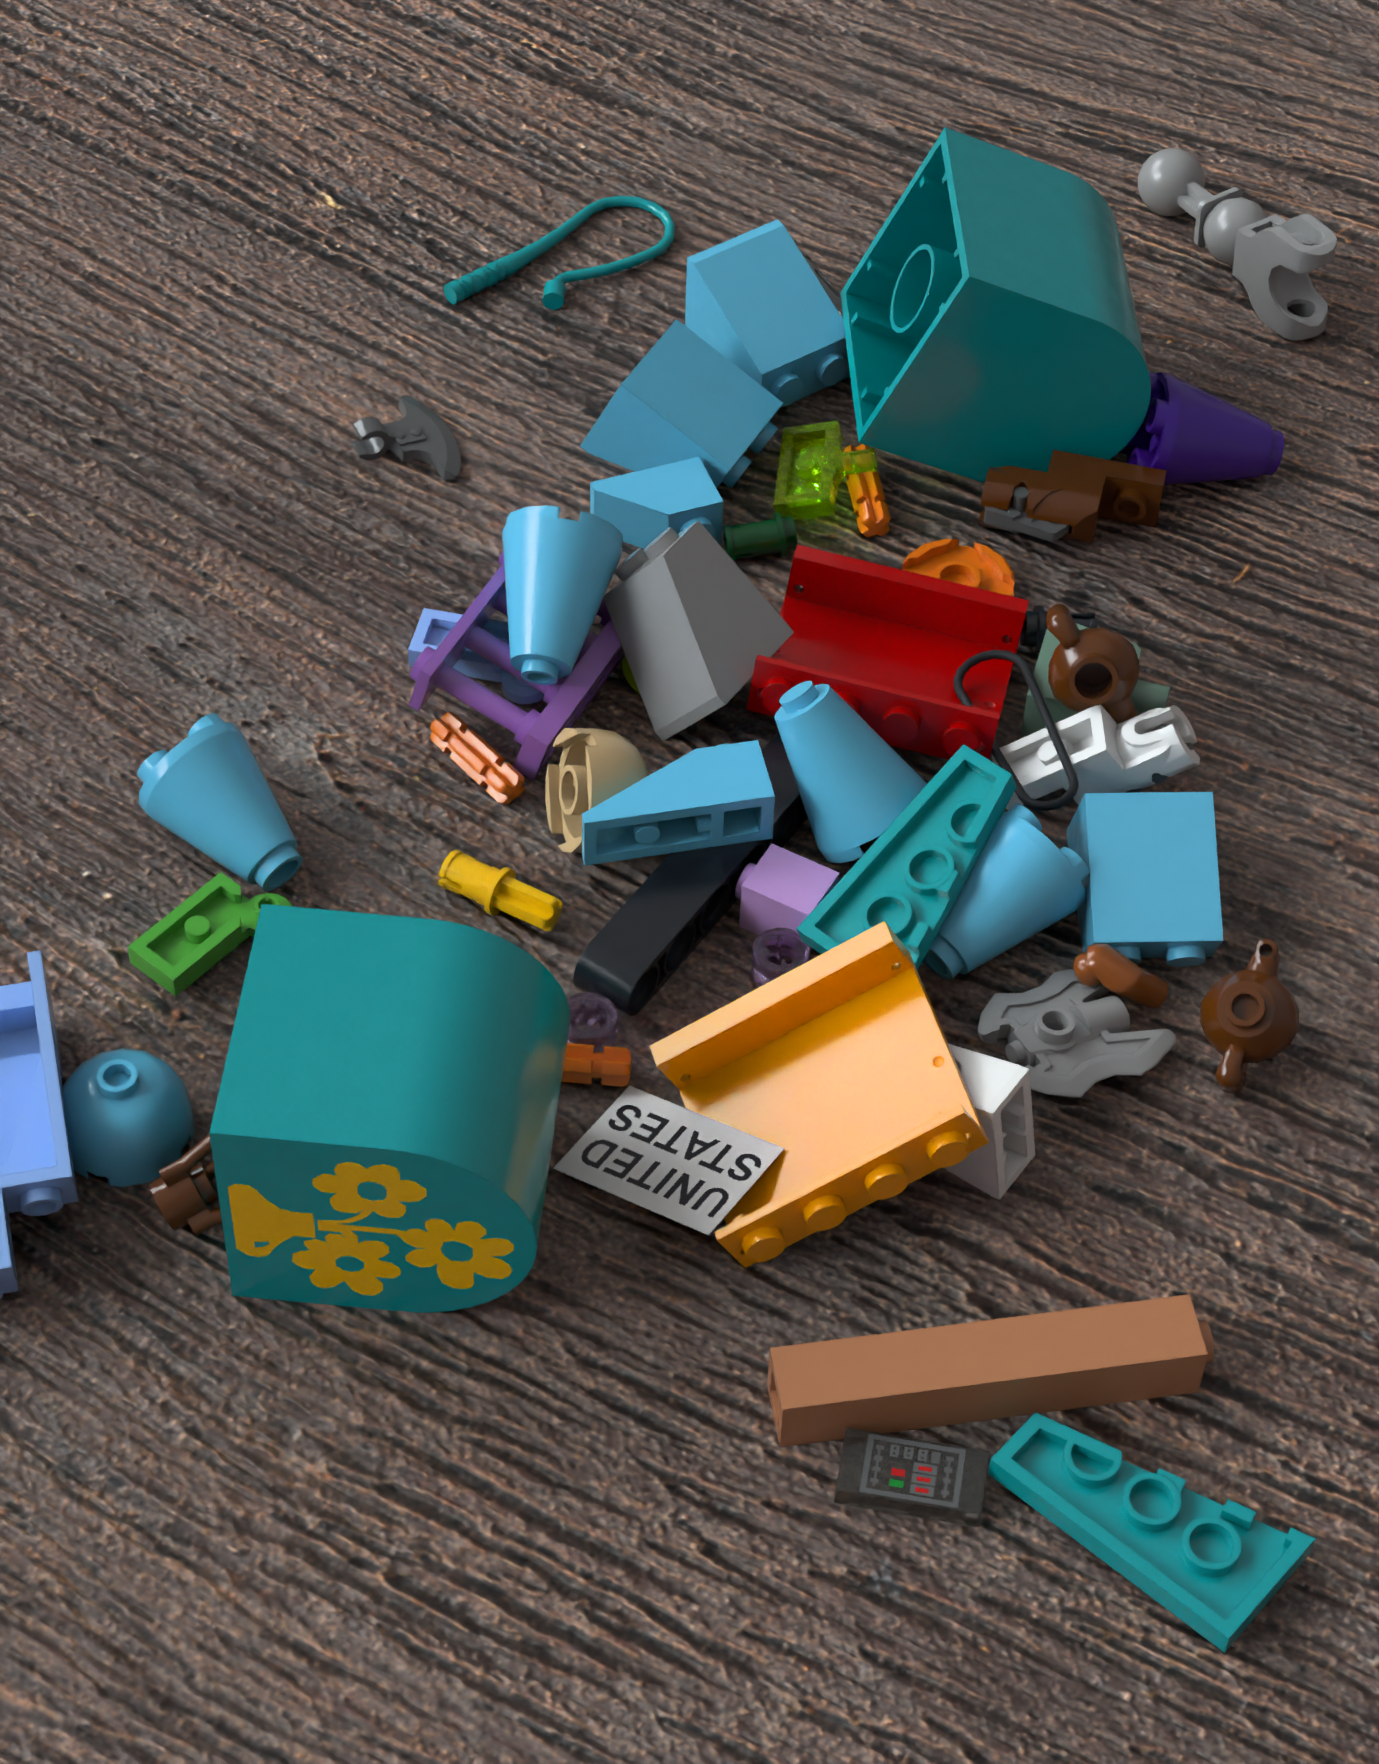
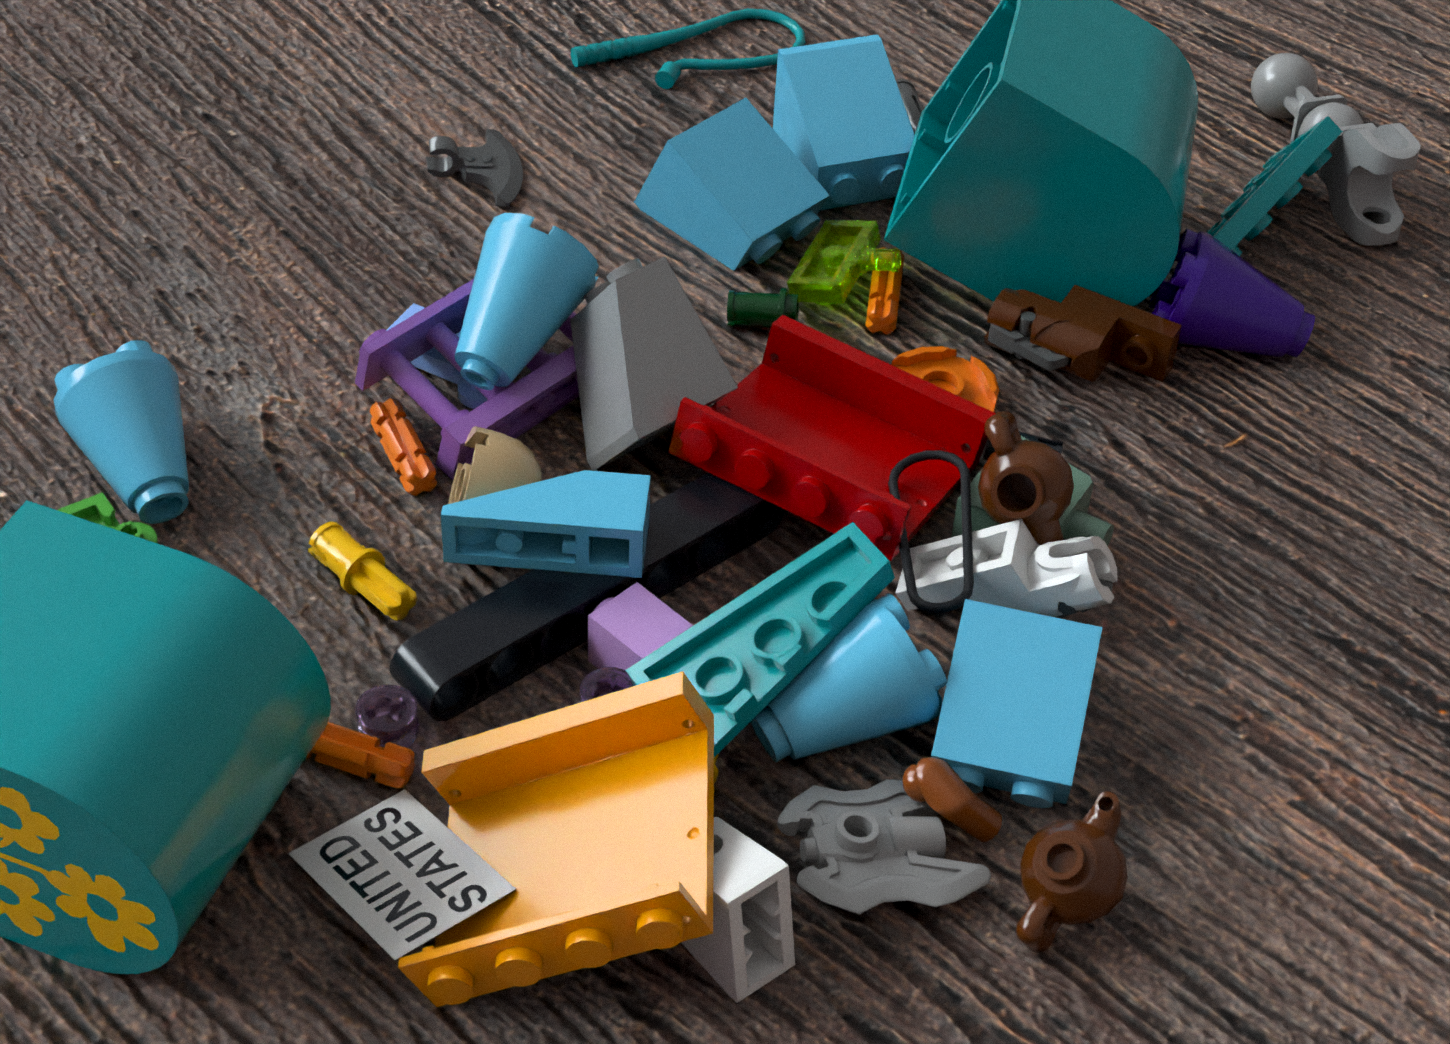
camera: 15 degrees right, 5 degrees down
(659, 498) = (694, 251): medium azure slope -> none
(842, 770) = (727, 520): medium azure cone -> none
(1198, 300) = (1275, 185): none -> teal wing

